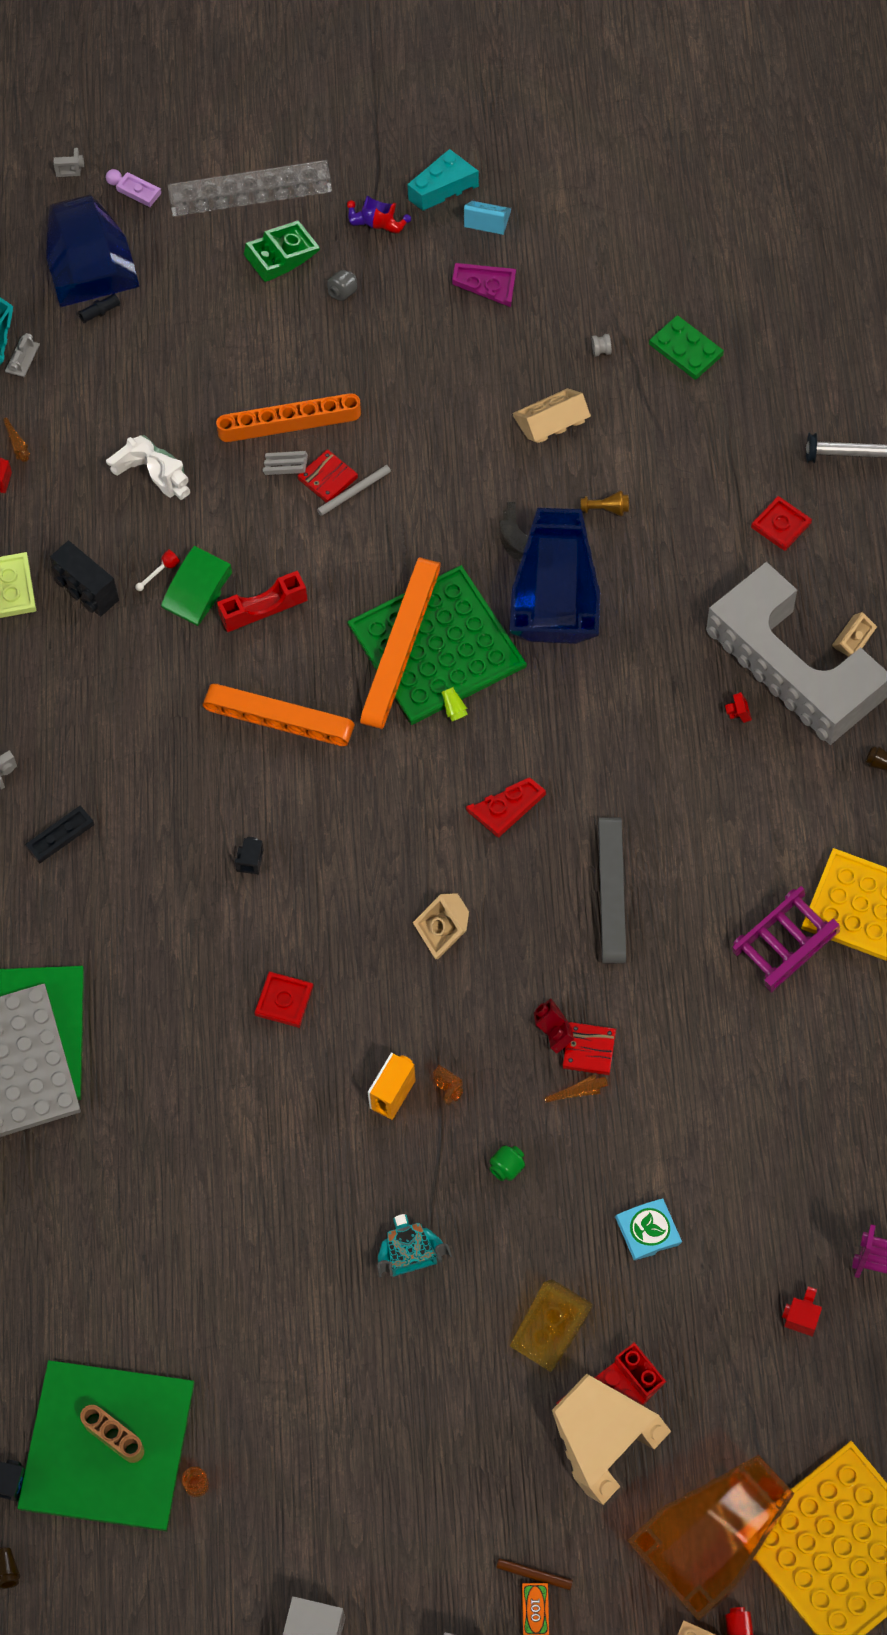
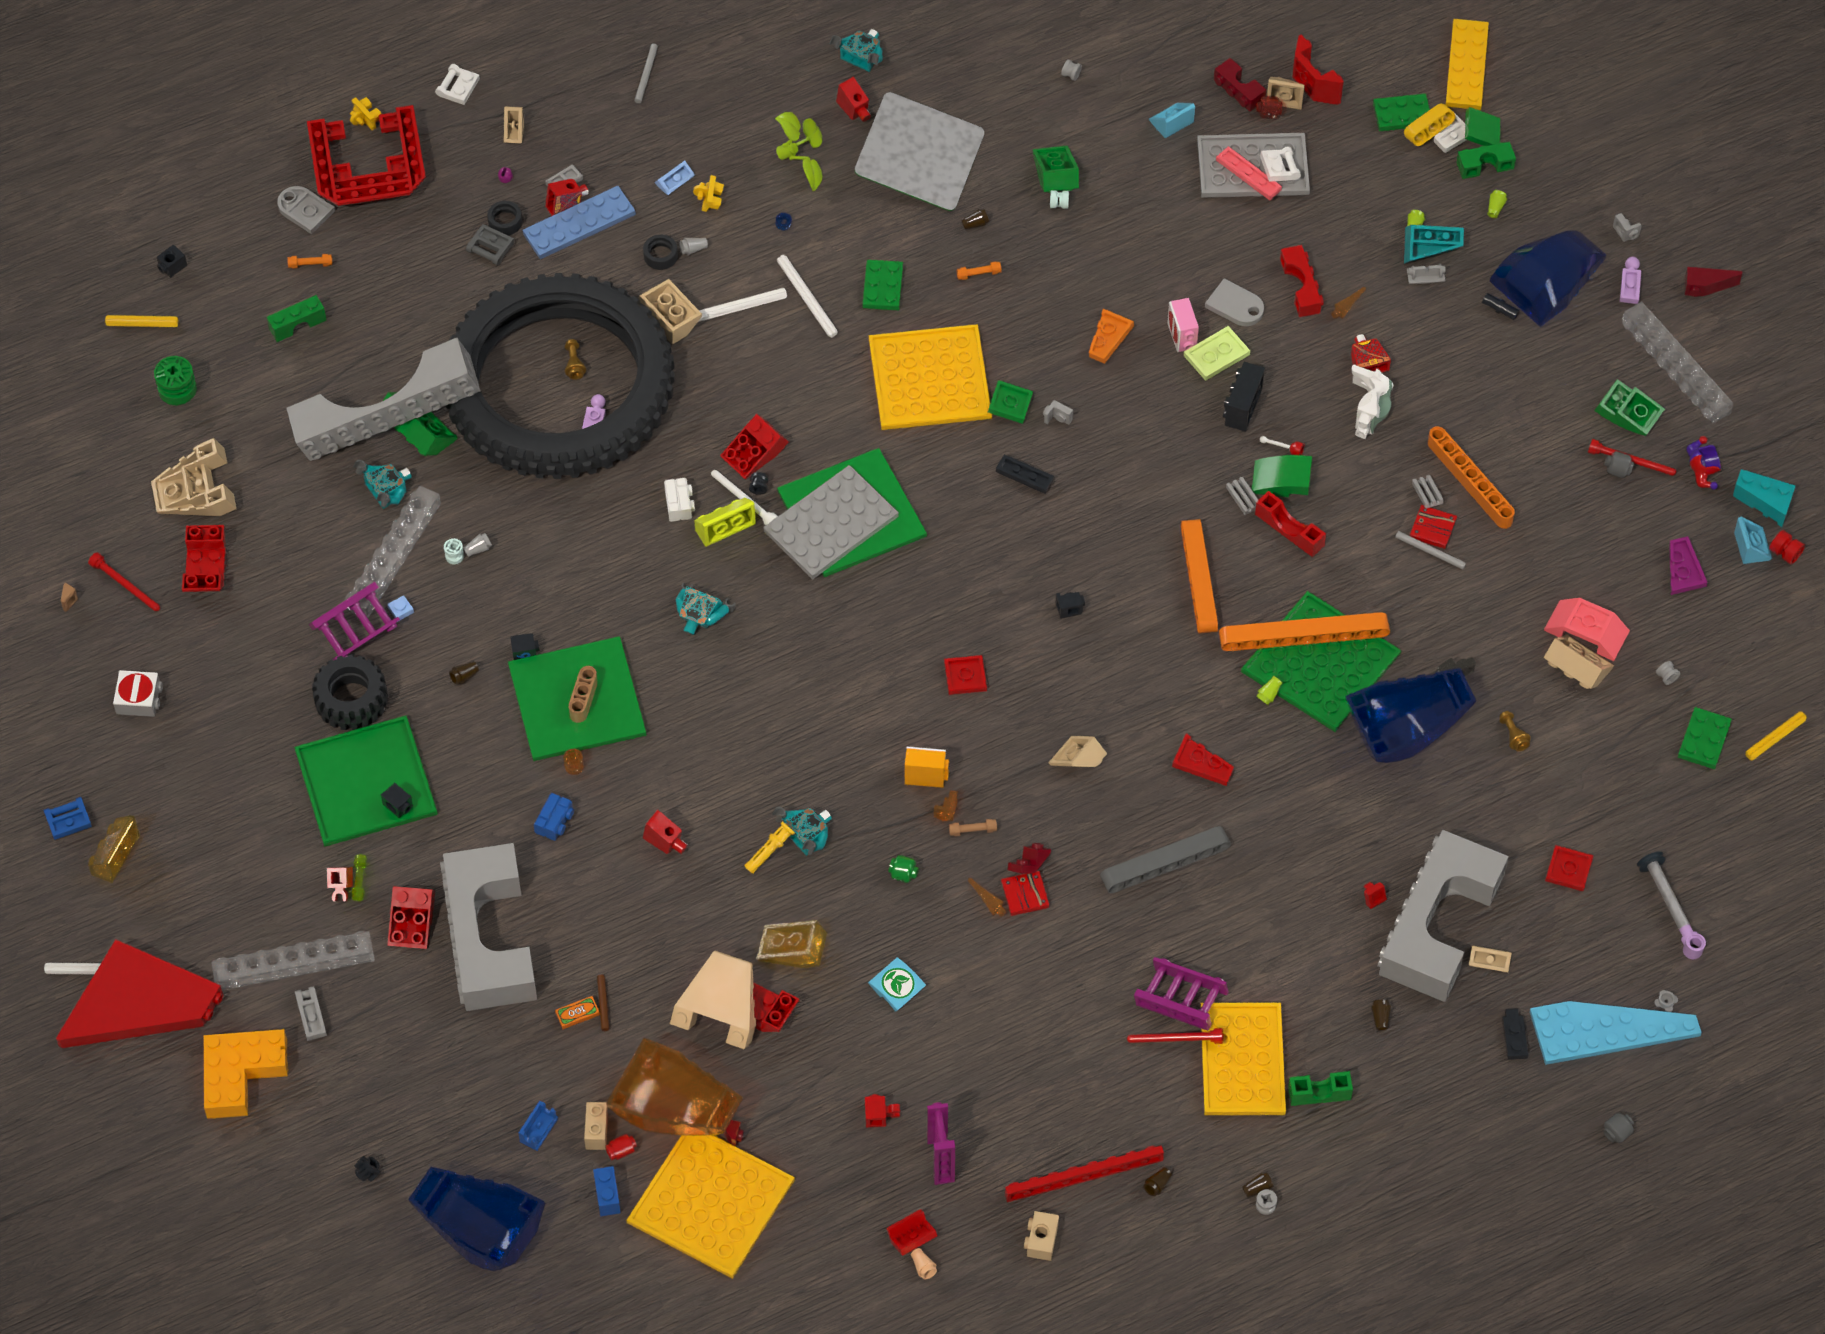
camera: 65 degrees right, 5 degrees down
(59, 1252) = (700, 608): none -> teal torso
(94, 447) = (1369, 354): none -> torso
(168, 127) = (1708, 281): none -> dark red slope
(199, 629) = (1230, 487): none -> light grey tile
(261, 1535) = (553, 817): none -> blue brick
(310, 297) = (1596, 447): none -> red piece
(346, 1412) = (664, 834): none -> red torso
(412, 1285) = (775, 840): none -> yellow pin
(488, 1051) = (955, 829): none -> medium nougat bar
(508, 188) = (1787, 547): none -> red wheel
(513, 388) = (1589, 623): none -> coral slope
(711, 288) = (1775, 735): none -> yellow axle
(852, 925) = (1214, 1036): none -> red piece

